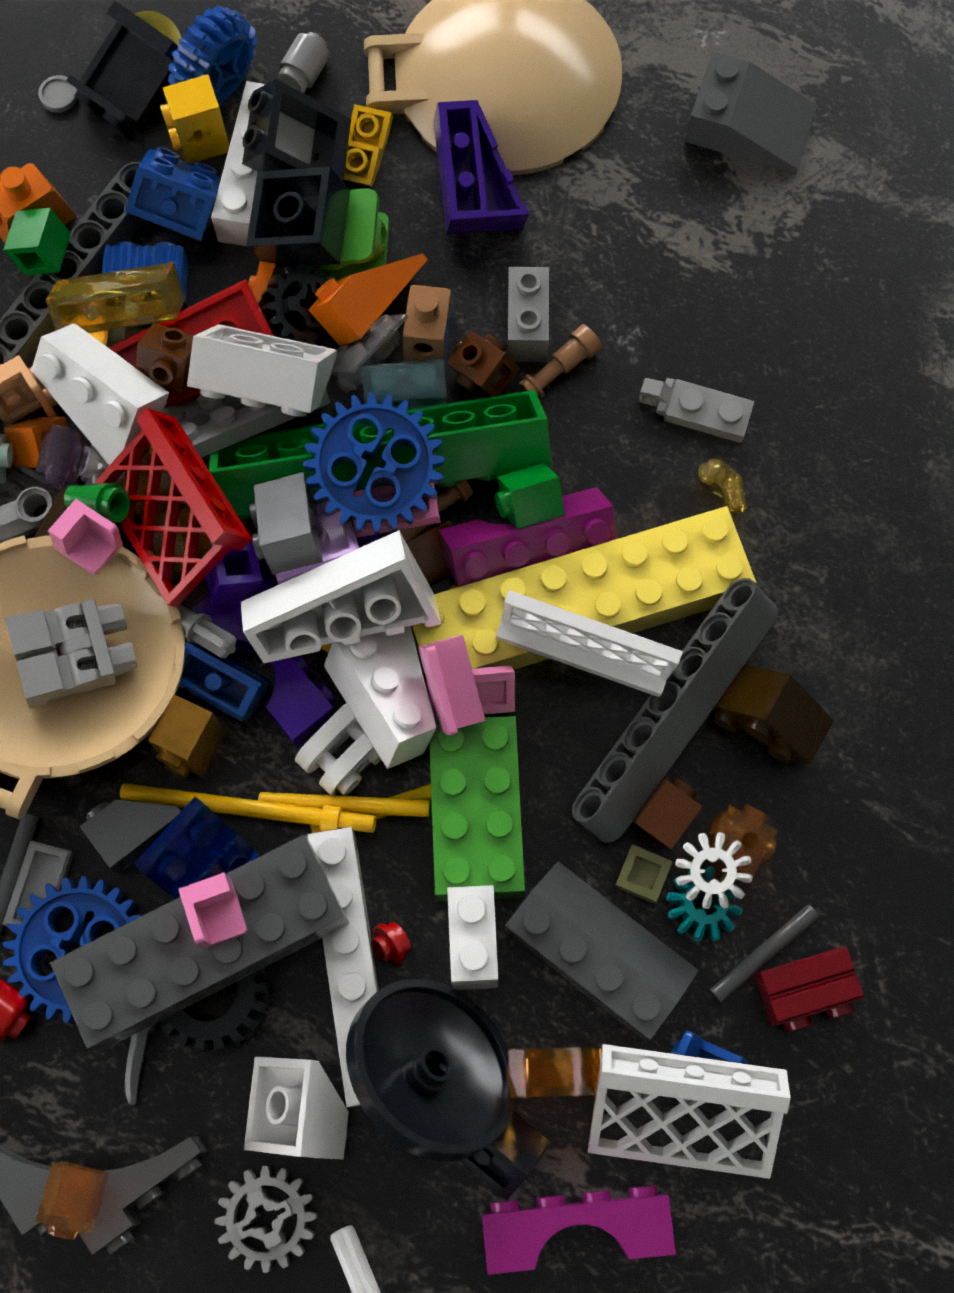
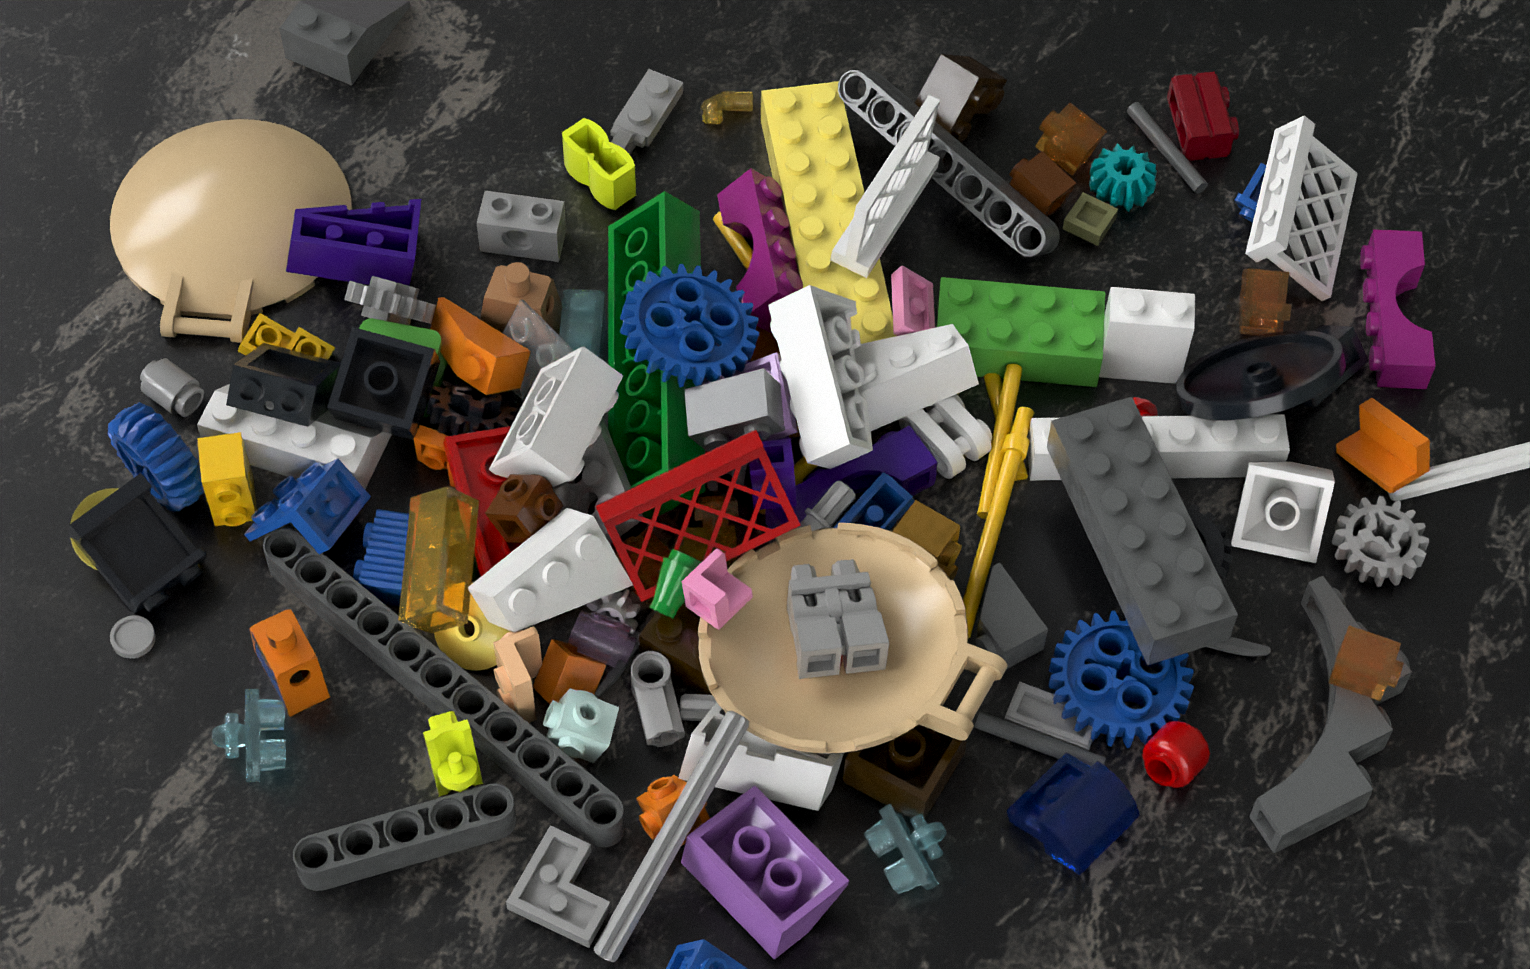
camera: 85 degrees left, 15 degrees down
(37, 241) = (346, 633): green brick -> none
(193, 849) = (1044, 561): clear blue brick -> none
(213, 910) = (1122, 487): bright pink panel -> none
(377, 1217) = (1386, 448): none -> orange panel
(407, 211) = (390, 301): none -> light grey gear
(451, 684) = (915, 305): bright pink panel -> none
(482, 364) = (572, 254): reddish brown brick -> none
(529, 496) = (730, 228): green brick -> none
(581, 346) = (562, 188): medium nougat piece -> none
(601, 951) = (1168, 248): dark grey slope -> none
(611, 369) = (599, 164): none -> neon yellow brick
(714, 885) = (1104, 144): white gear -> none

